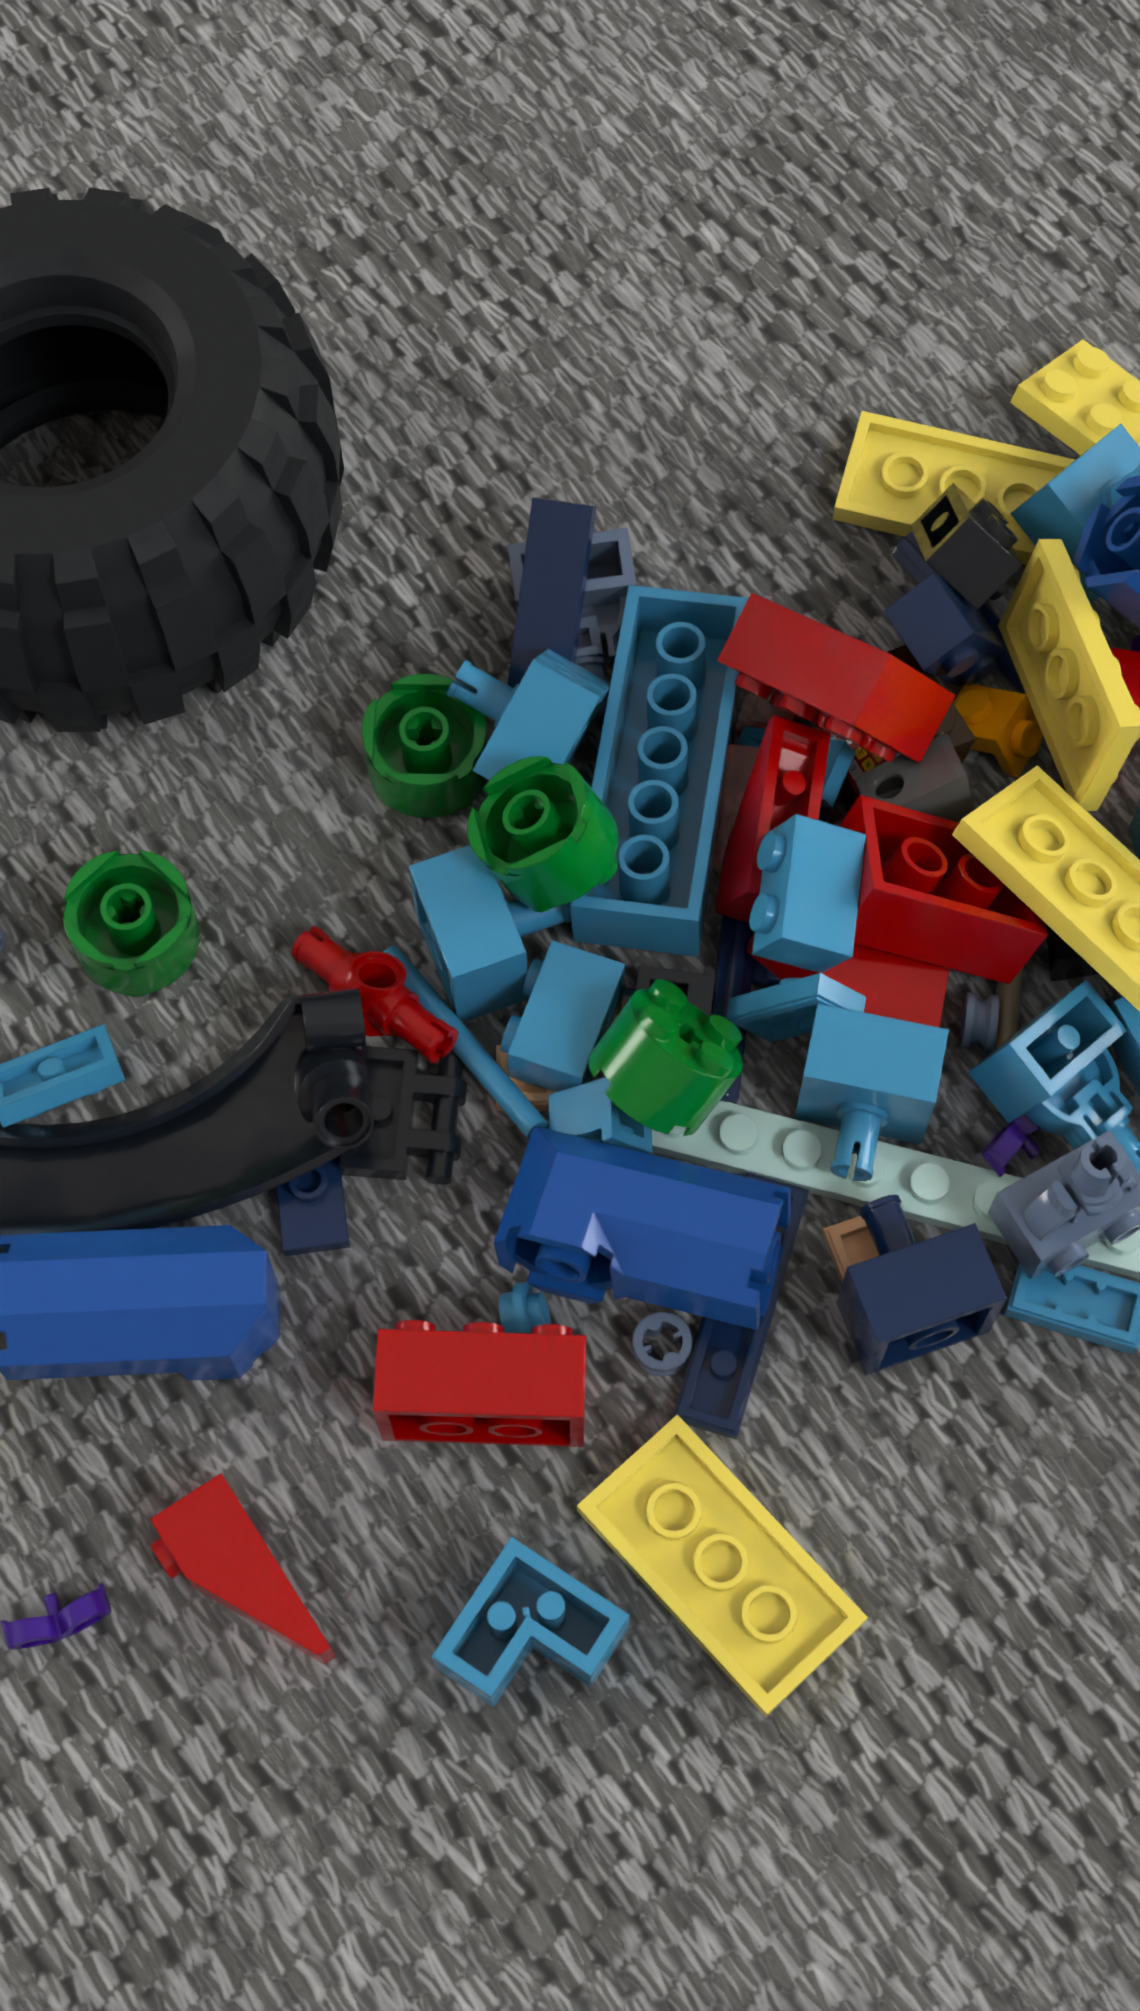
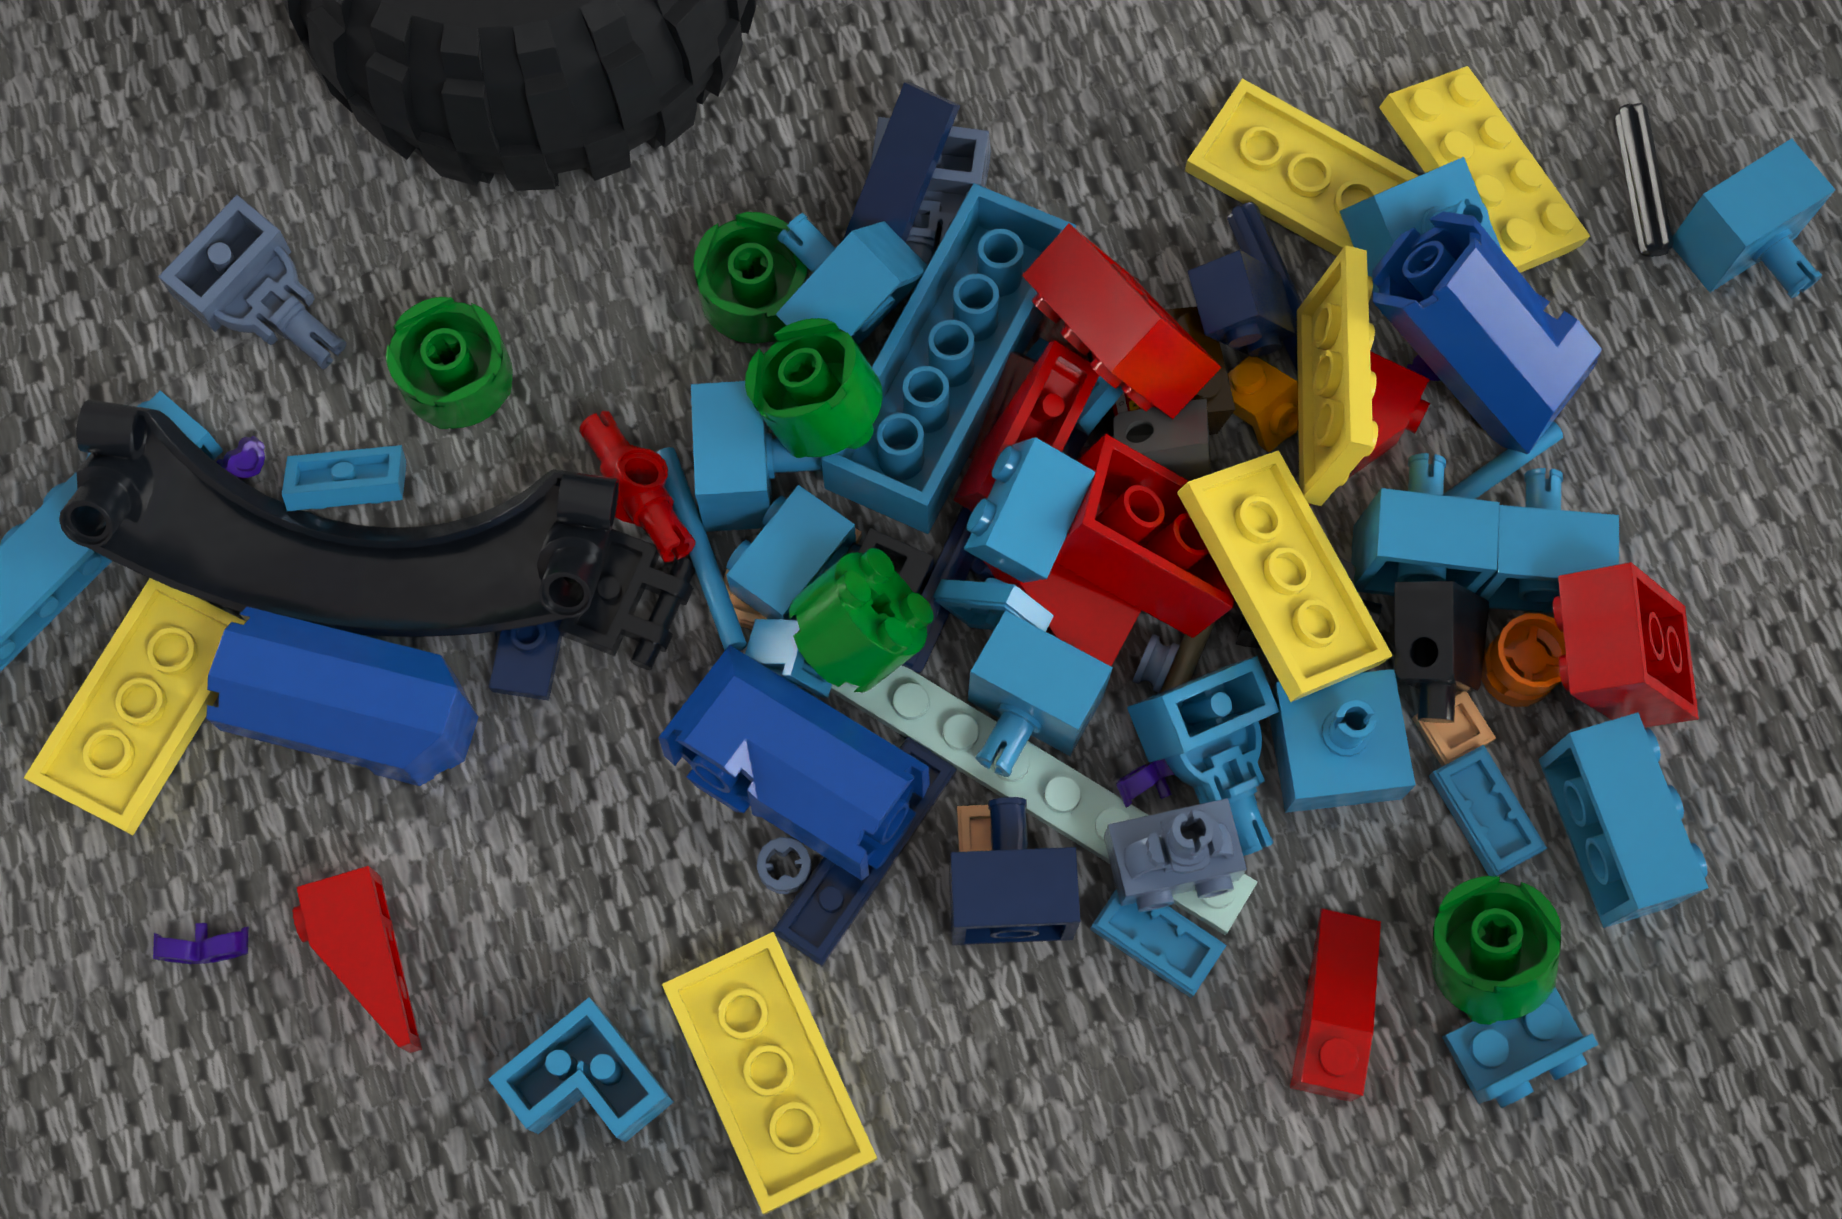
camera: 15 degrees right, 5 degrees up
(480, 1385) = (610, 856): red brick -> none
(523, 1309) = (673, 805): dark azure plate -> none
(968, 545) = (1287, 231): black brick -> none

